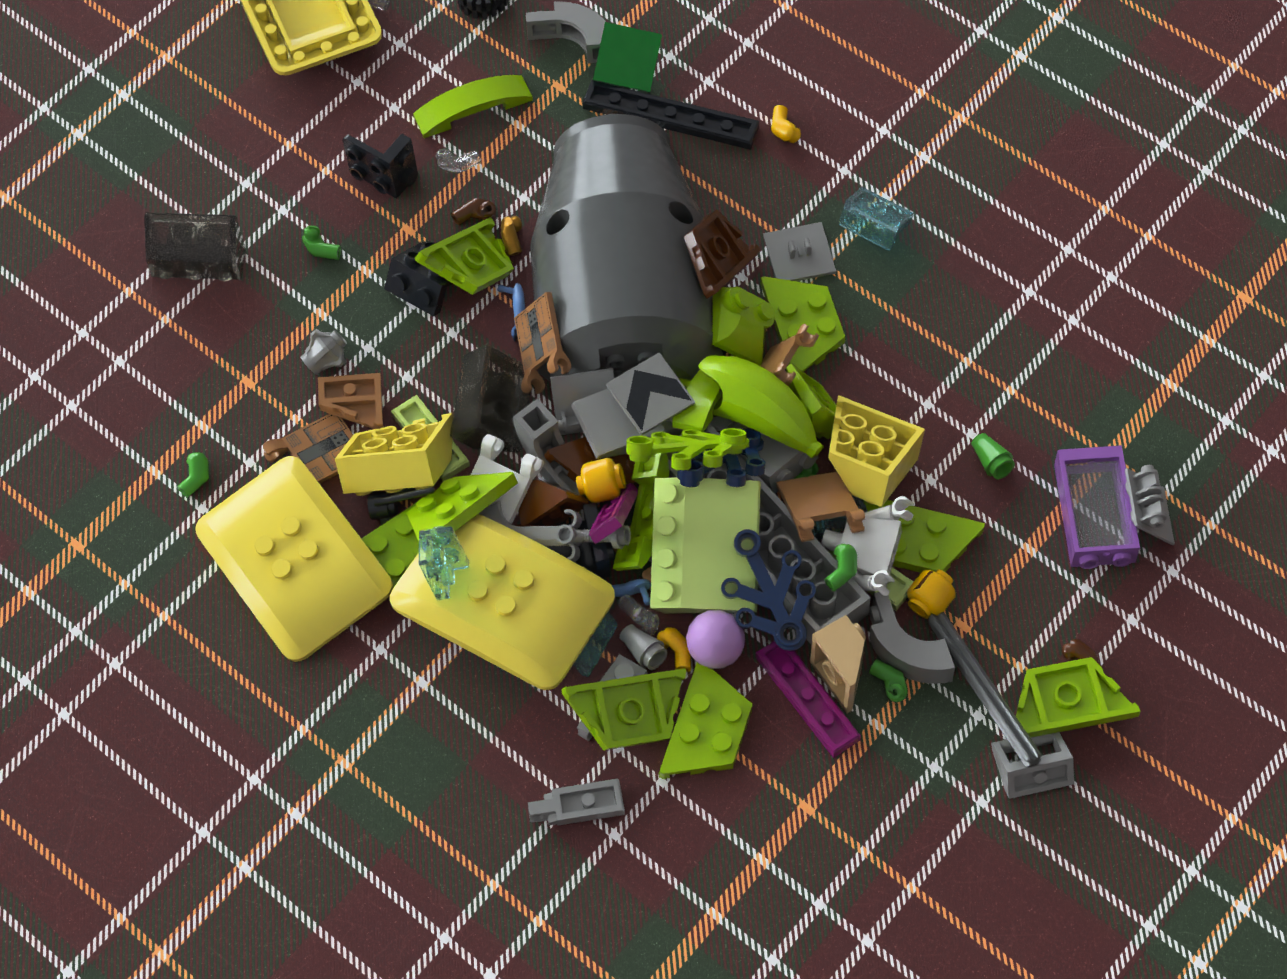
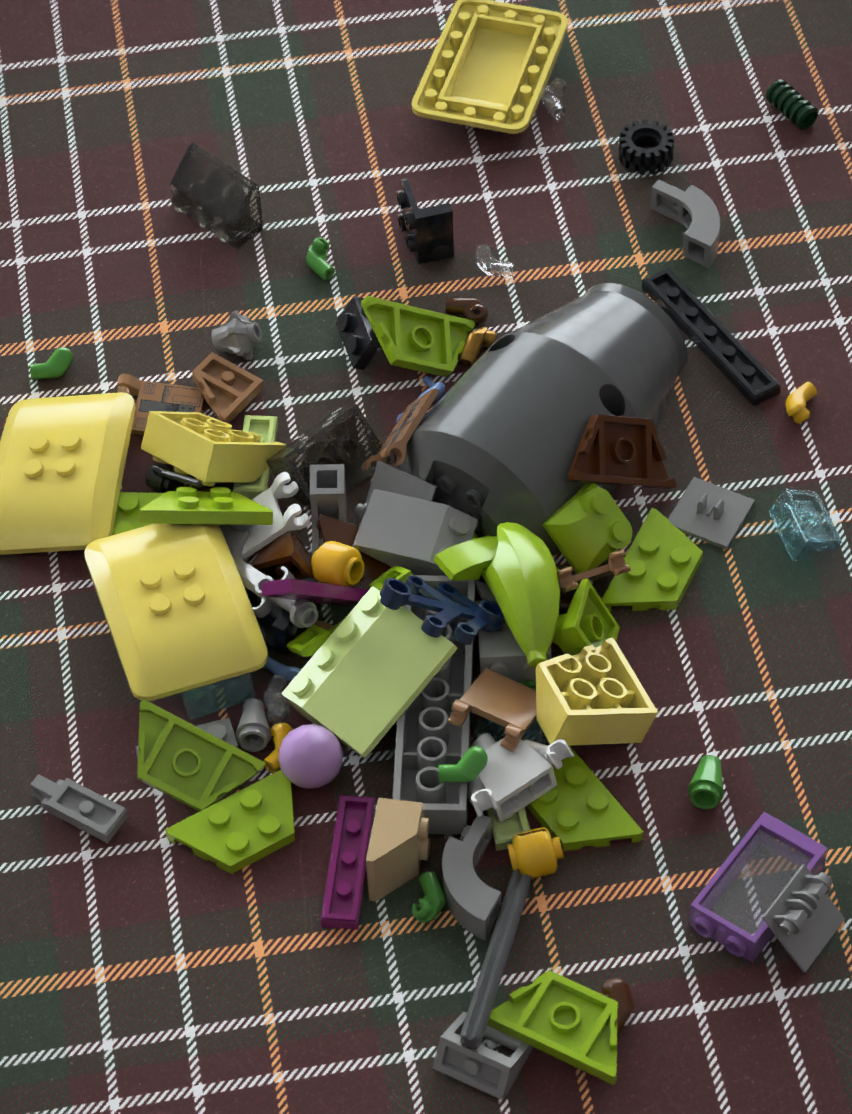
camera: 40 degrees right, 10 degrees down
(439, 557) = (134, 528): clear light blue bracket -> none
(469, 99) = (555, 222): lime slope -> none
(627, 57) = (710, 264): green tile -> none
(650, 393) = (436, 519): light grey piece -> none
(690, 444) = (425, 584): lime plant -> none
(771, 596) = (382, 746): dark blue plant -> none

